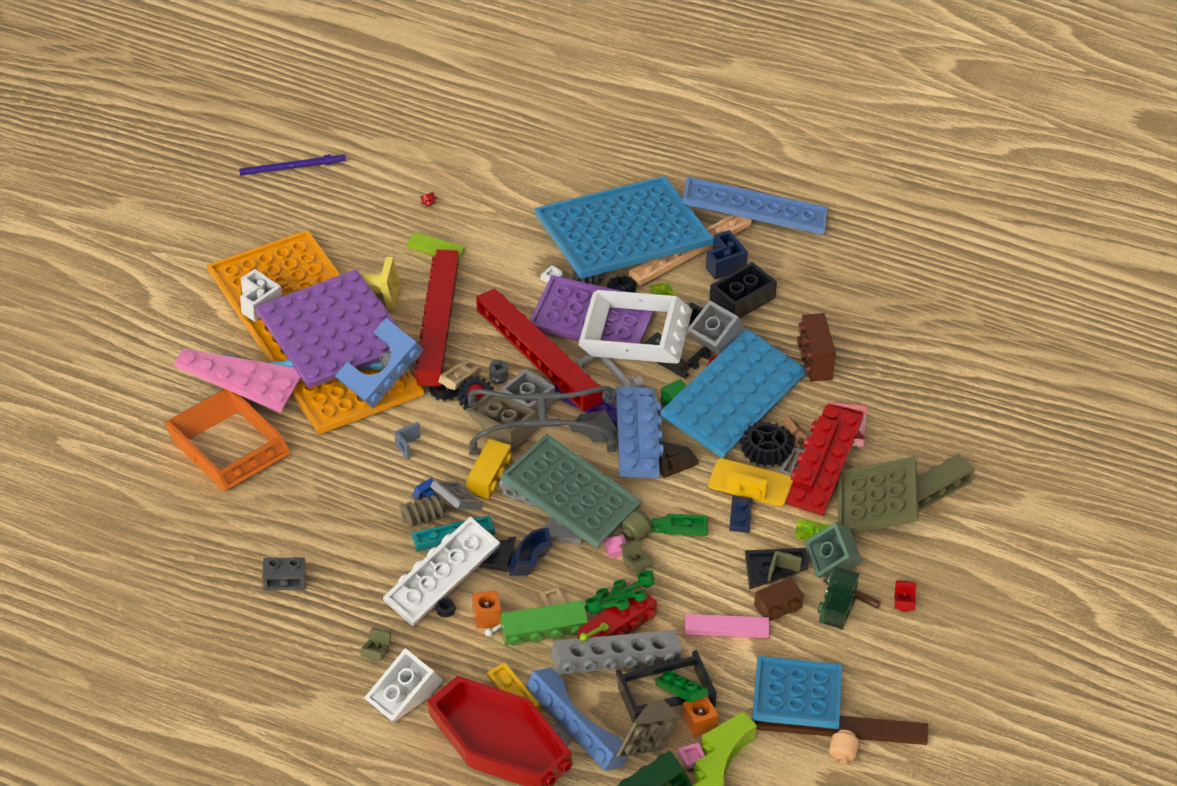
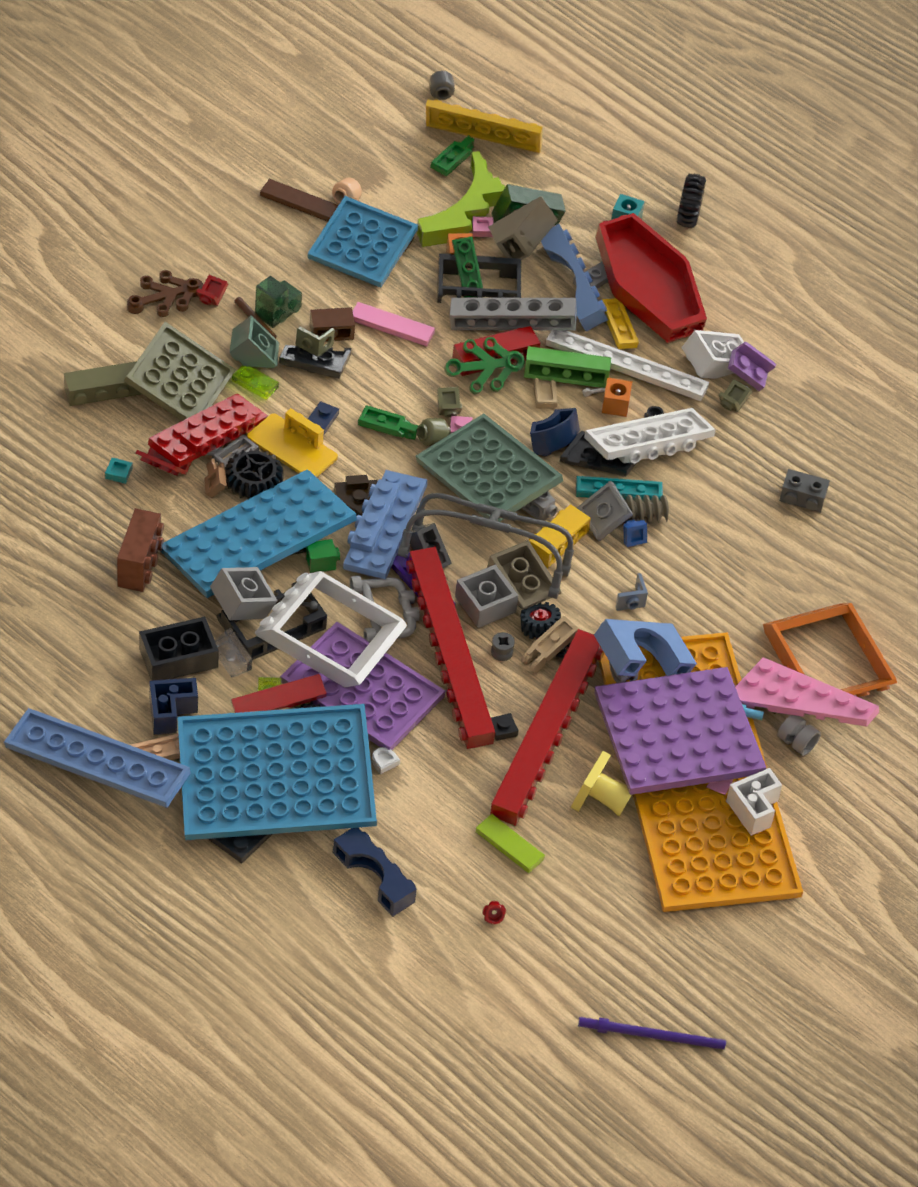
camera: 165 degrees left, 5 degrees up
(369, 674) = (750, 365): none -> medium lavender bracket
(473, 320) = (504, 727): none -> black plate
(480, 650) = (631, 364): none -> white plate
(503, 193) = (357, 850): none -> dark blue arch
(603, 627) = (517, 331): lime hinge -> none
(652, 280) = (282, 696): none -> red tile
(877, 417) = (118, 470): none -> teal plate
(927, 601) = (188, 287): none -> reddish brown plant

